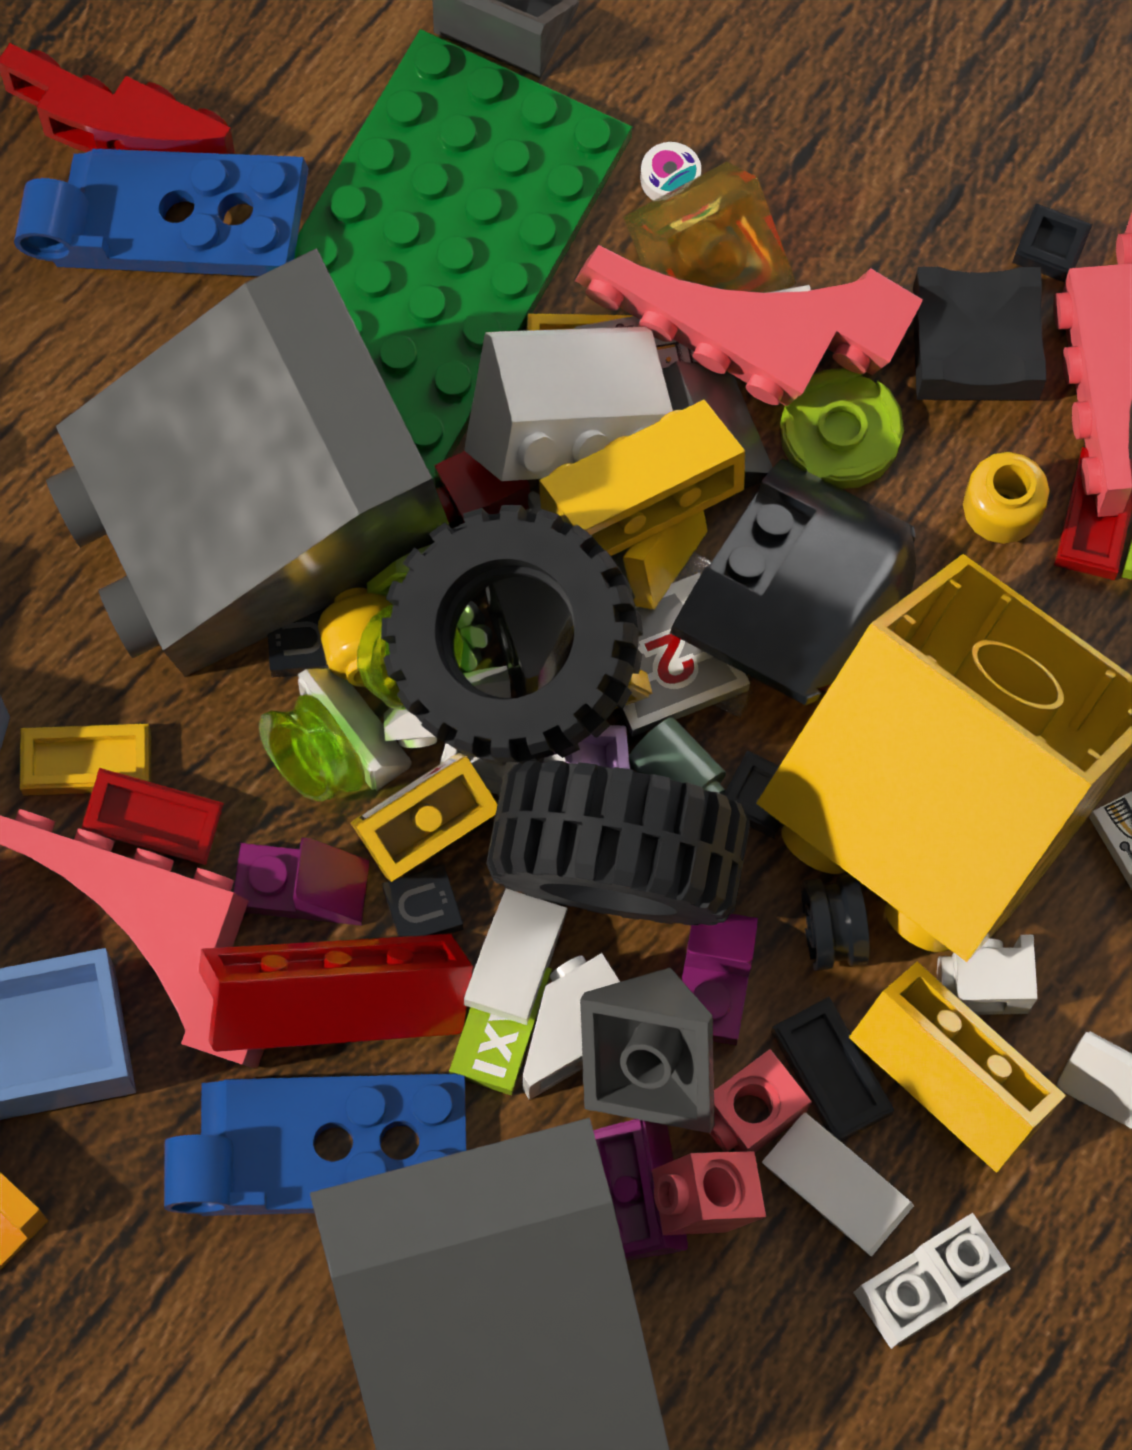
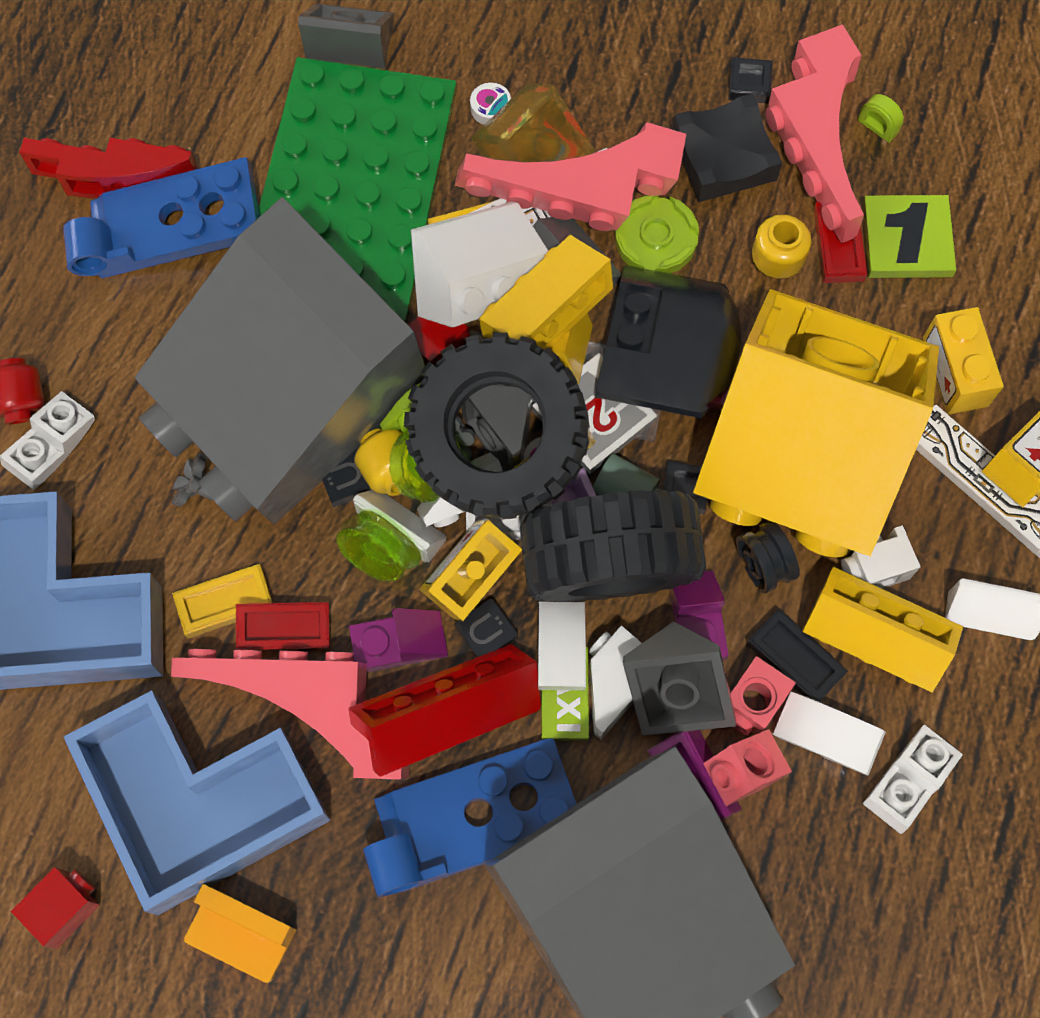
camera: 15 degrees left, 0 degrees up
(85, 588) = (188, 485): none -> dark grey plant

